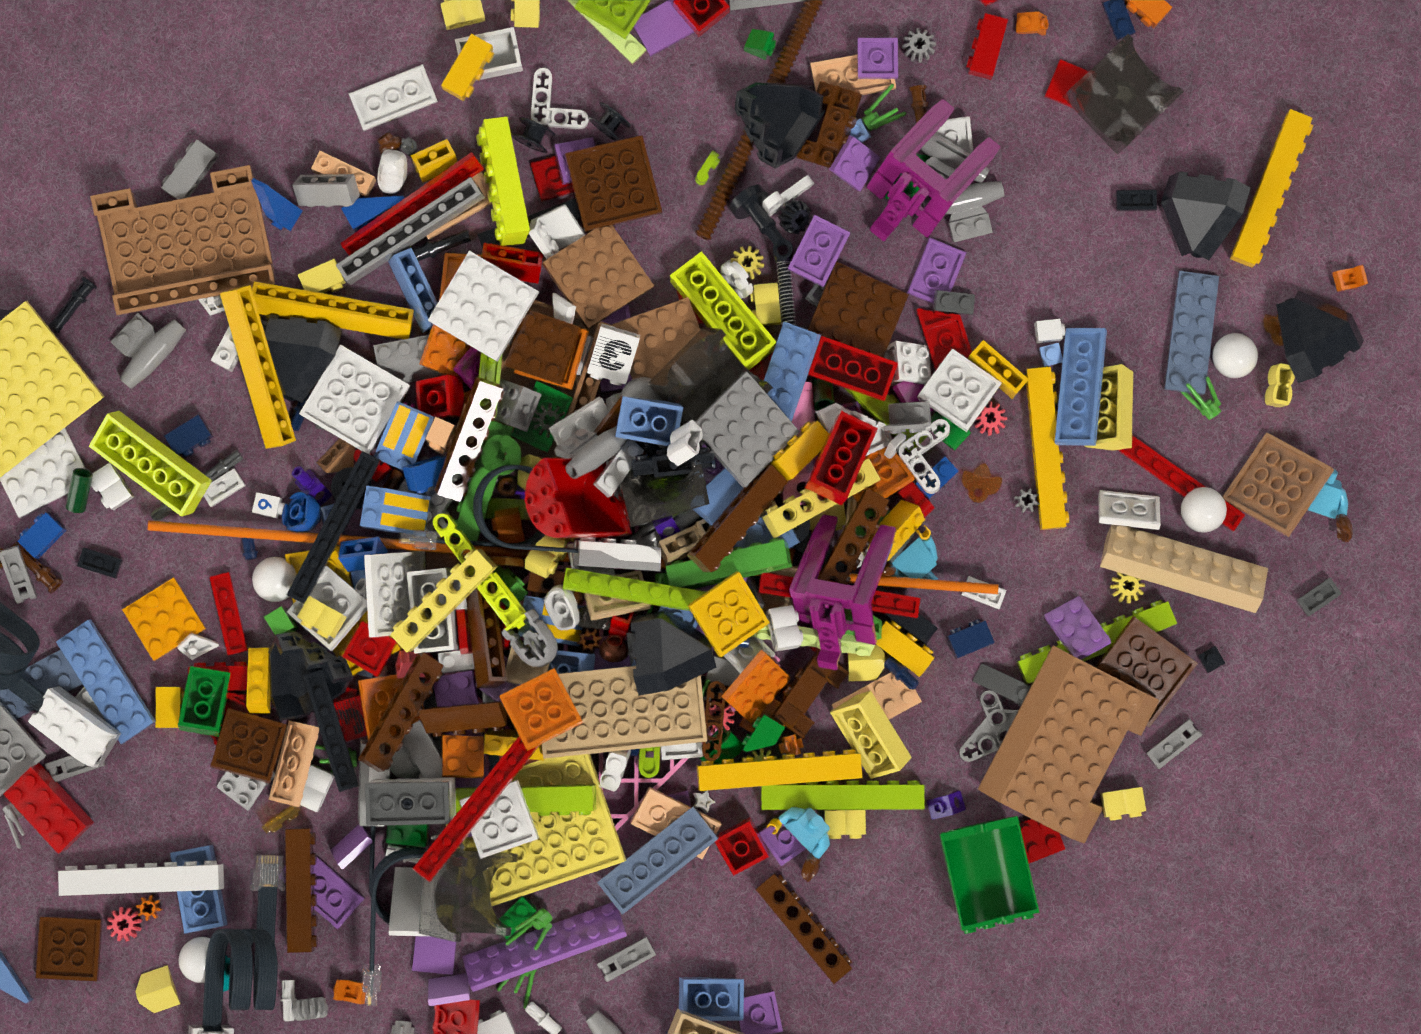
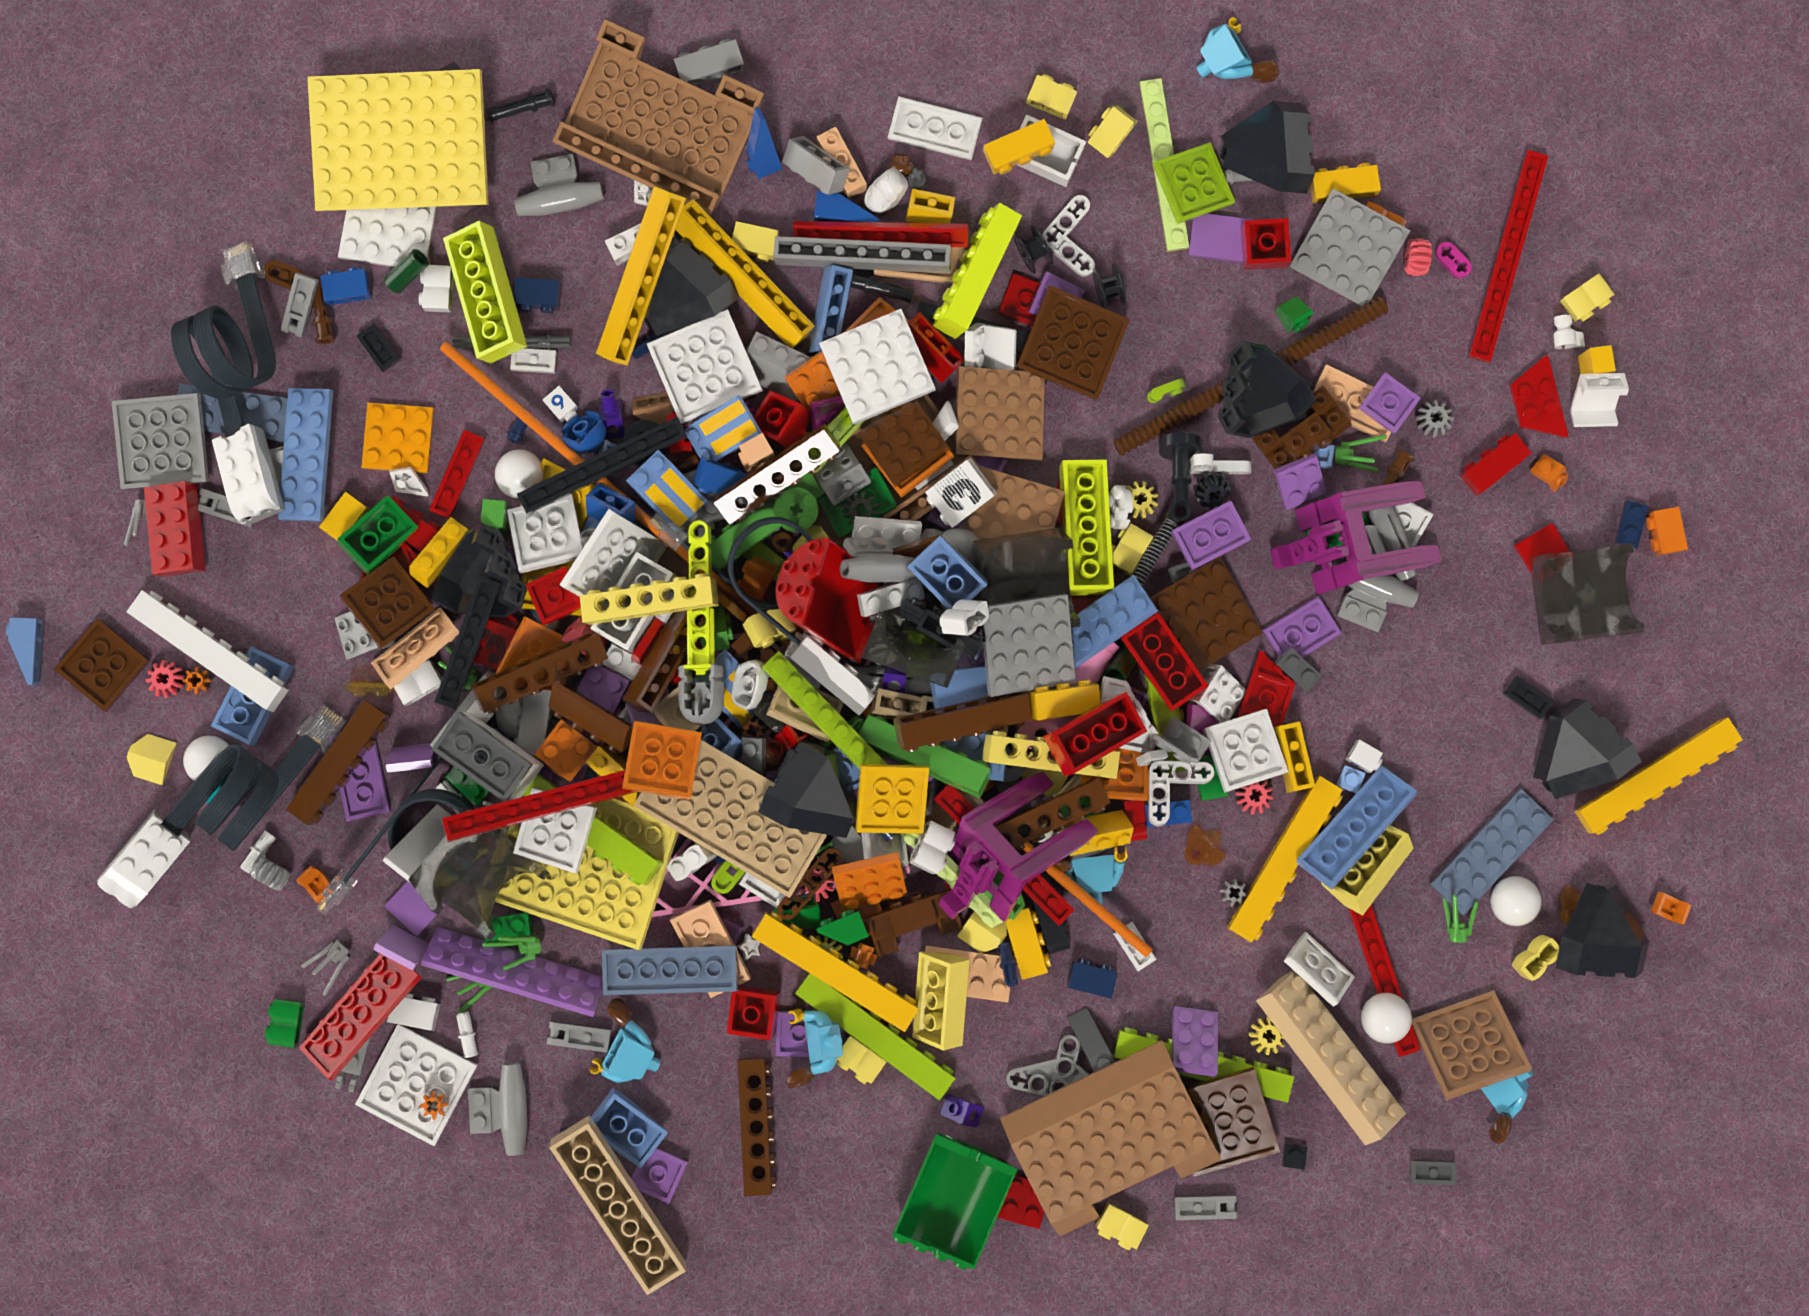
camera: 35 degrees right, 0 degrees up
(321, 617) = (532, 537): light yellow brick -> none
(603, 655) = (754, 753): none -> dark grey plate
(672, 941) = (630, 1051): none -> medium azure torso

